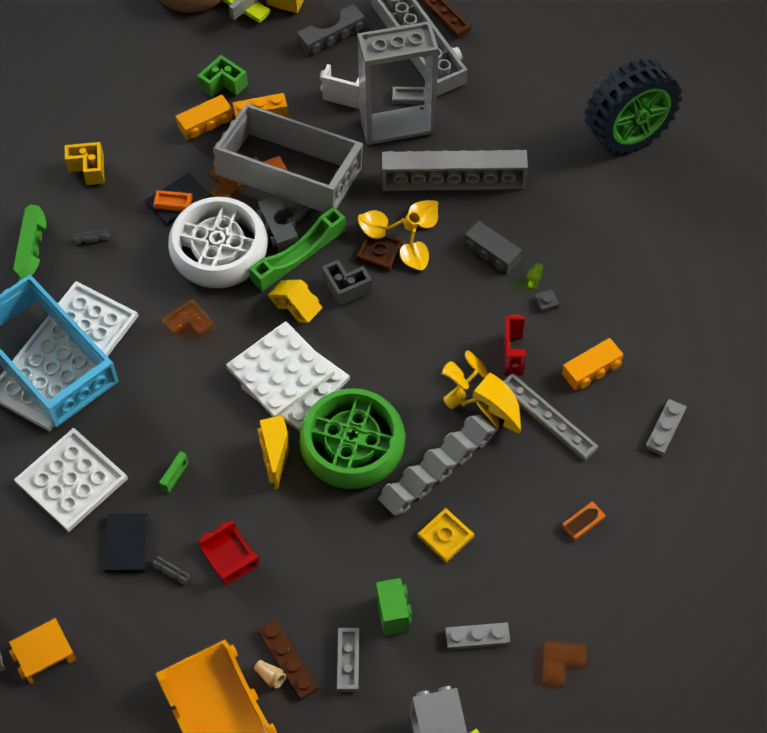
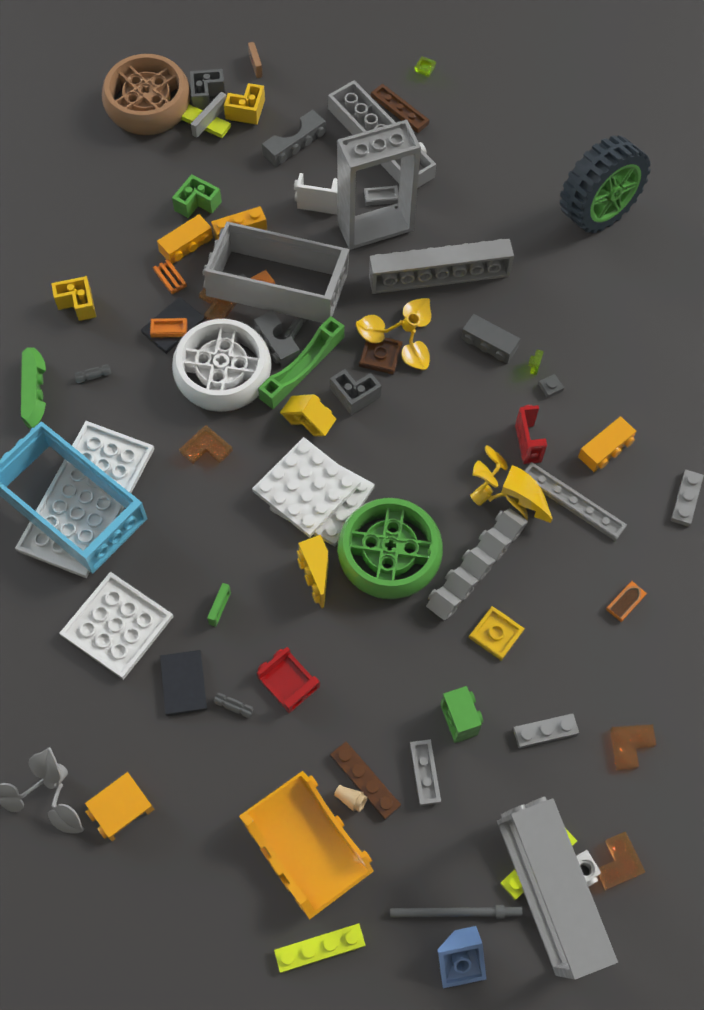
camera: 10 degrees left, 5 degrees up
(179, 142) = (164, 267): none -> orange tile

